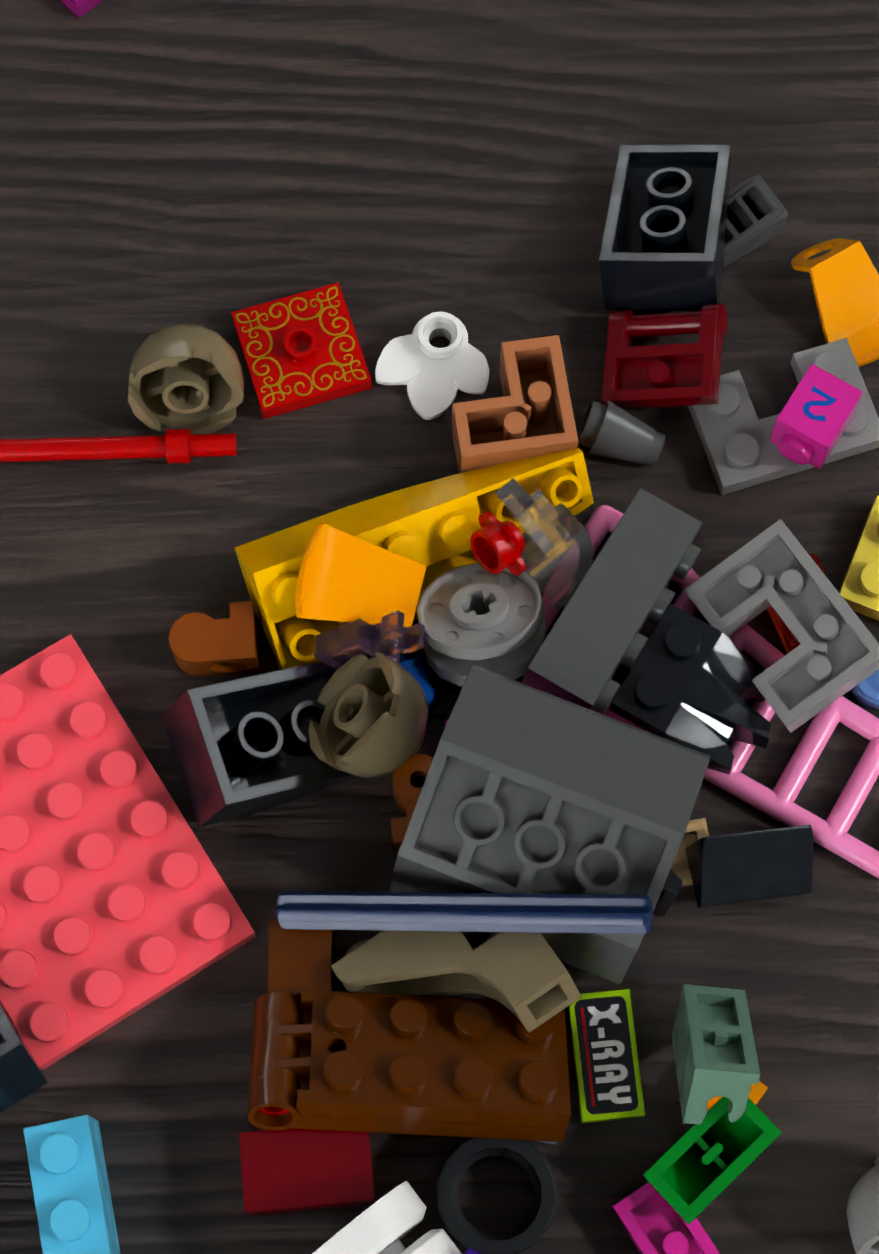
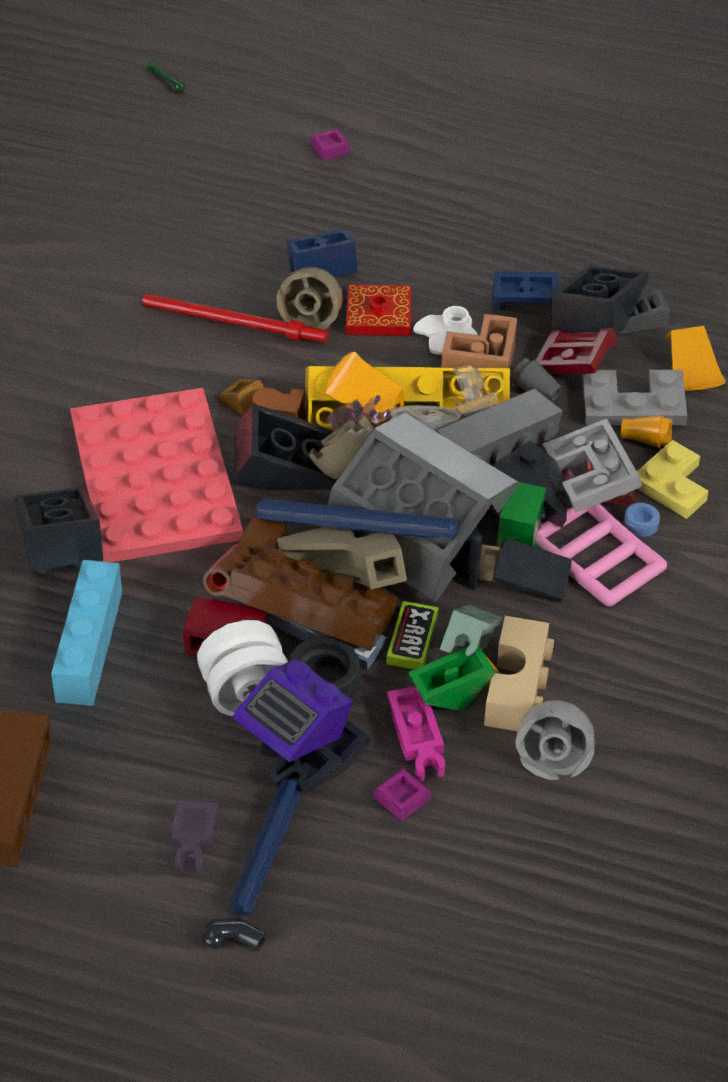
camera: 20 degrees right, 25 degrees down
(142, 621) = (240, 394): none -> pearl gold slope
(166, 262) = (329, 251): none -> dark blue hinge
(498, 545) = (446, 391): red plate -> none
(537, 241) = (523, 287): none -> dark blue hinge
(723, 785) = (522, 514): none -> green slope
(803, 1033) = (523, 650): none -> tan arch
(815, 417) = (646, 386): dark pink brick -> none
(834, 487) = (648, 430): none -> light orange cone

